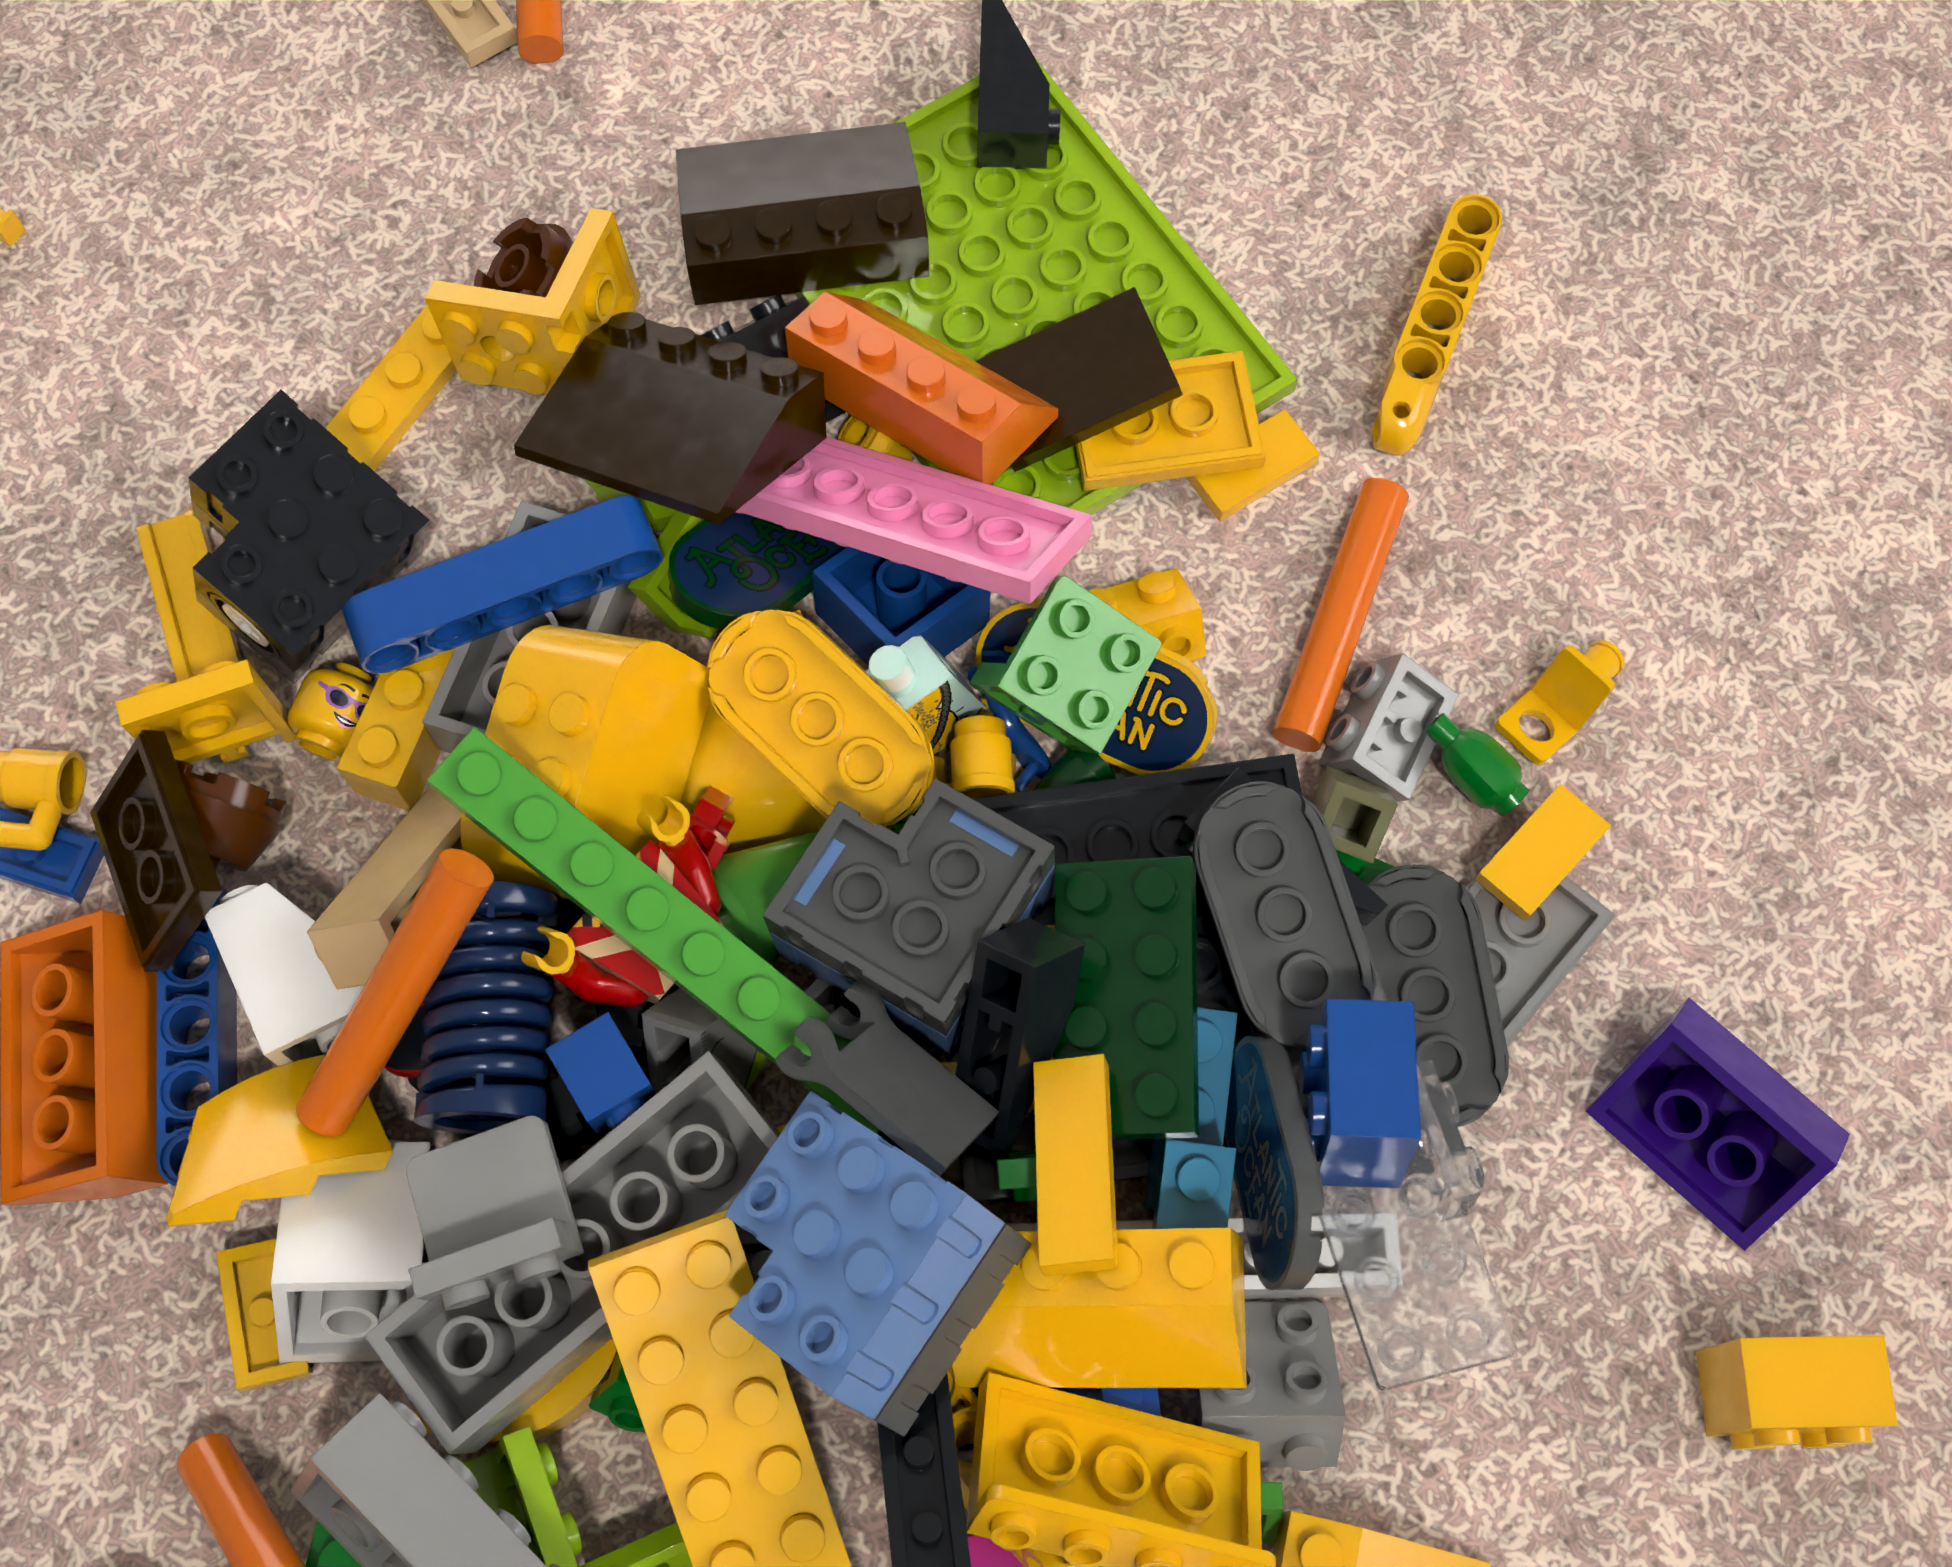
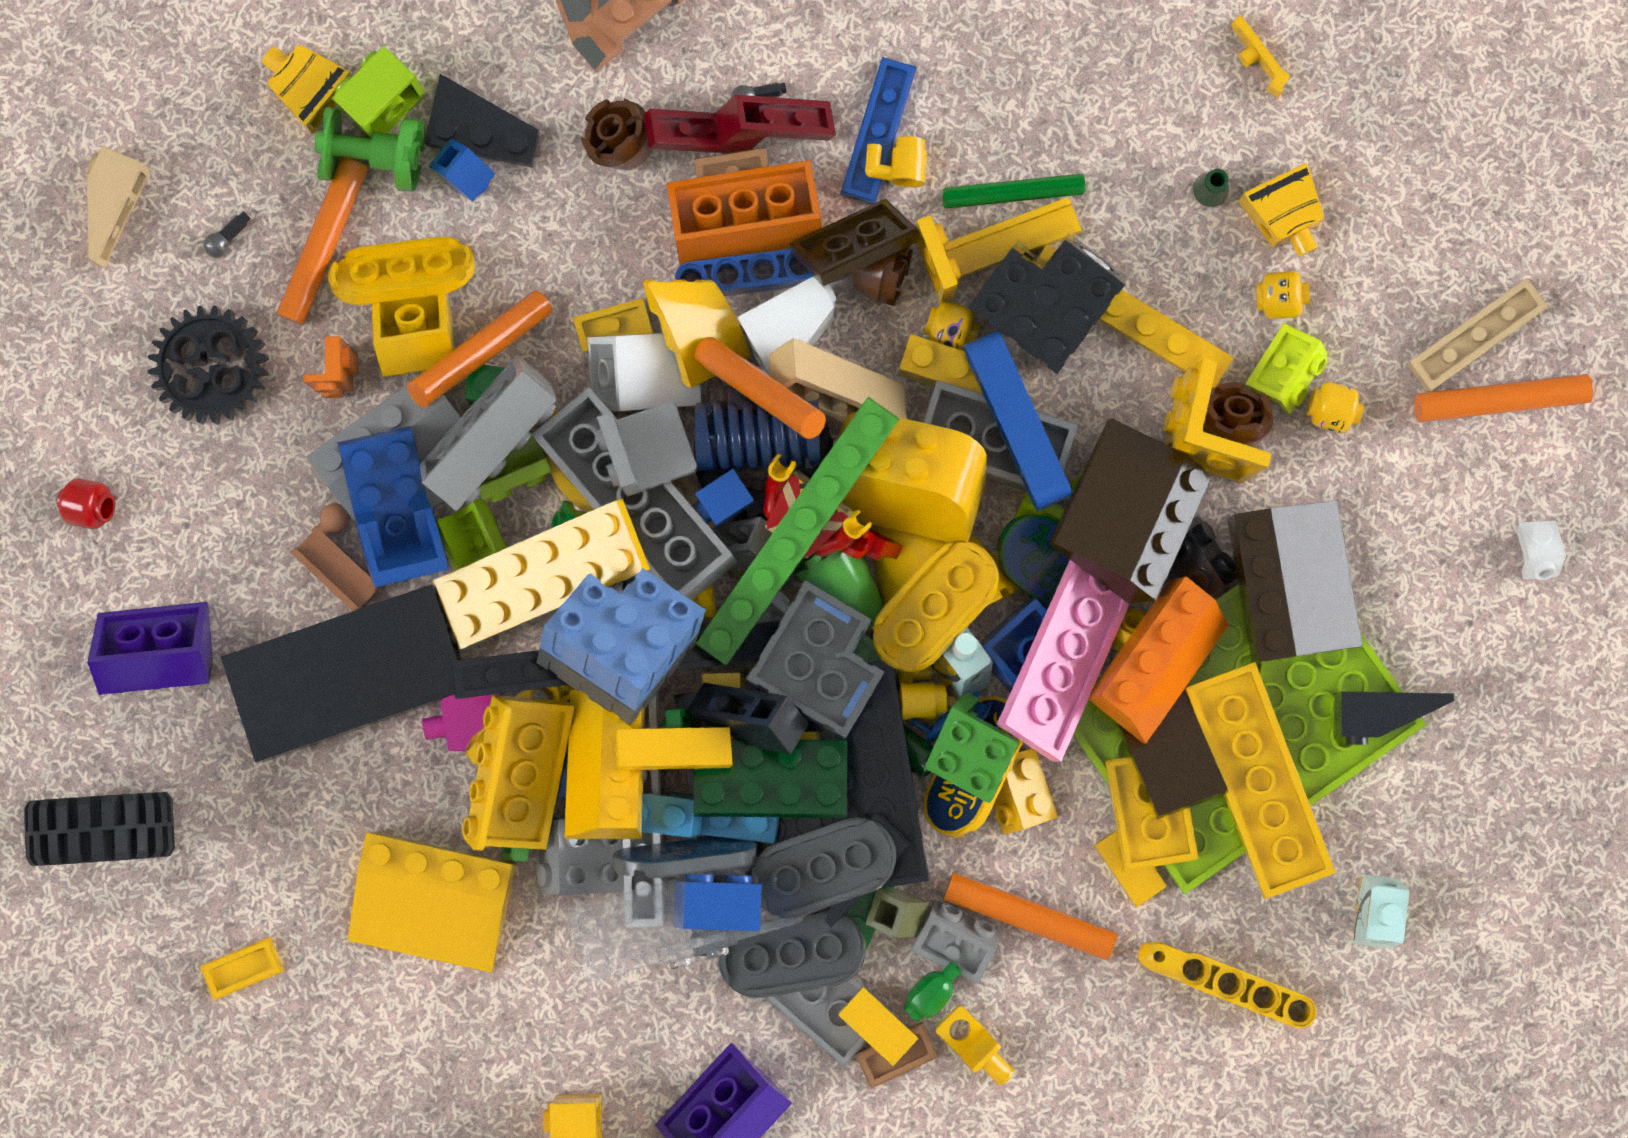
camera: 90 degrees right, 15 degrees up
(114, 614) = (1013, 191): none -> green axle
(150, 312) = (1207, 193): none -> dark green cone
(204, 212) = (1286, 209): none -> yellow torso
(341, 220) = (1282, 295): none -> yellow head
(452, 216) = (1288, 367): none -> neon yellow bracket
(528, 154) = (1335, 407): none -> yellow head
(890, 1080) = (714, 652): dark grey flag -> none
(1161, 241) = (1260, 780): none -> yellow plate
(1314, 108) = (1381, 912): none -> light aqua torso
(1613, 857) = (879, 1070): none -> medium nougat tile

